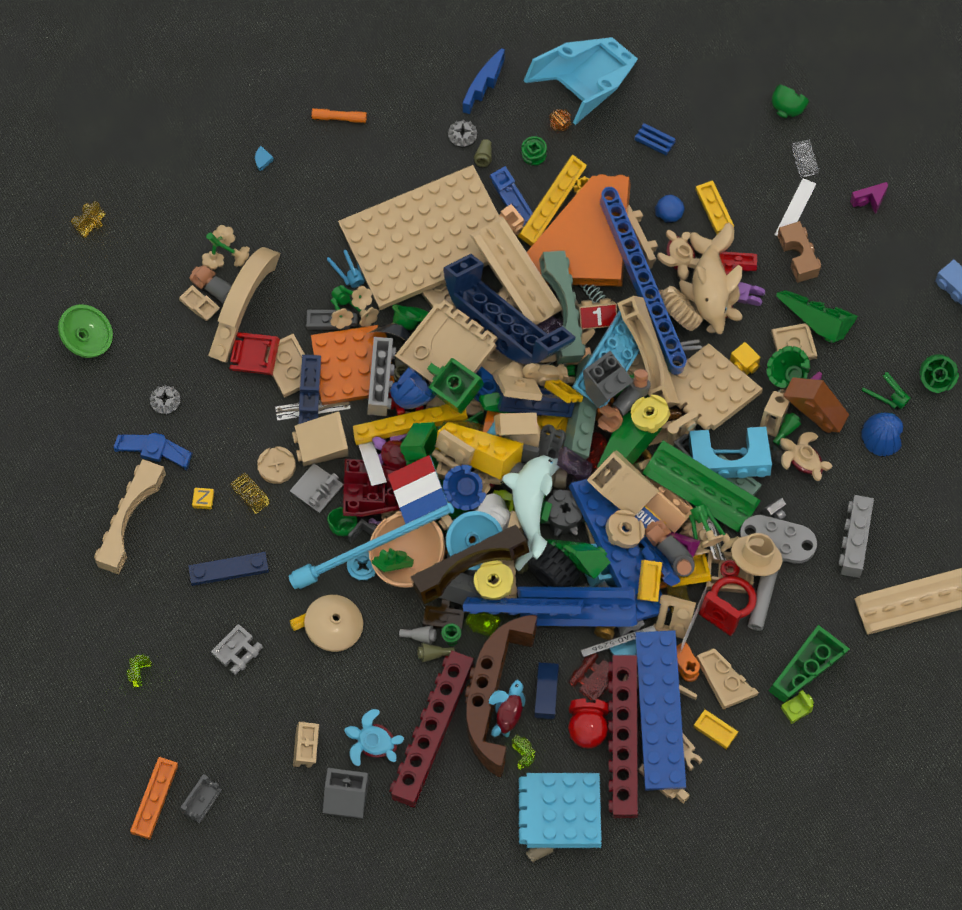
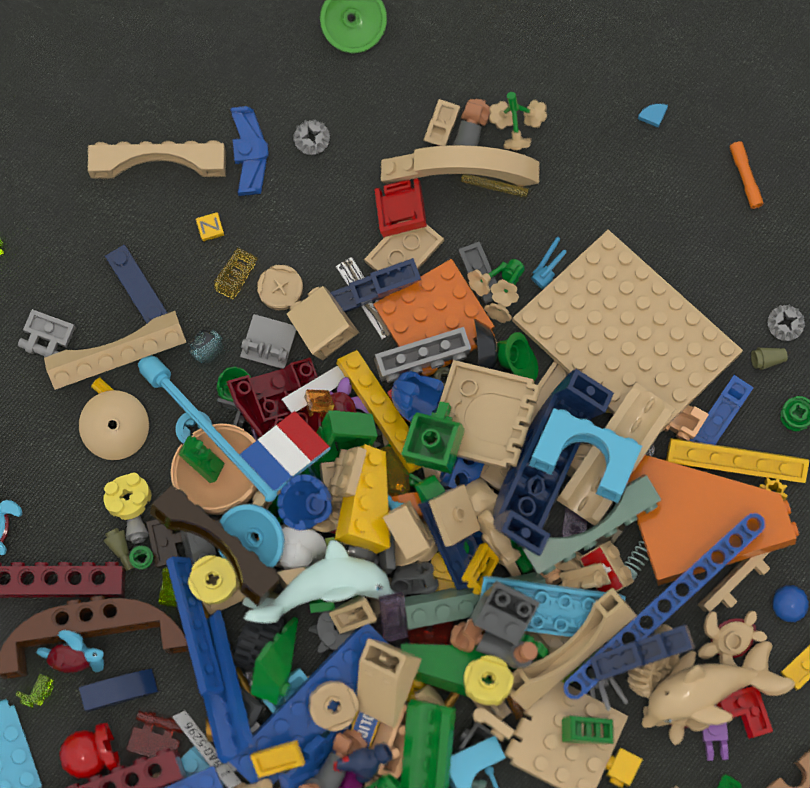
camera: 70 degrees right, 10 degrees up
(266, 285) = (495, 185): none -> clear yellow bar
(274, 631) = (152, 338): none -> tan arch
(301, 532) = (206, 346): none -> clear light blue head
(385, 460) = (318, 401): none -> clear orange tile
(385, 631) = (119, 488): none -> light yellow plate
(520, 264) = (565, 429): none -> medium azure arch
(562, 488) = (352, 614): none -> tan slope
(598, 328) = (585, 577): none -> tan hinge
(672, 302) = (642, 652): none -> dark blue slope
(676, 521) = (365, 761): none -> dark blue animal
(709, 370) = (573, 730): none -> green slope

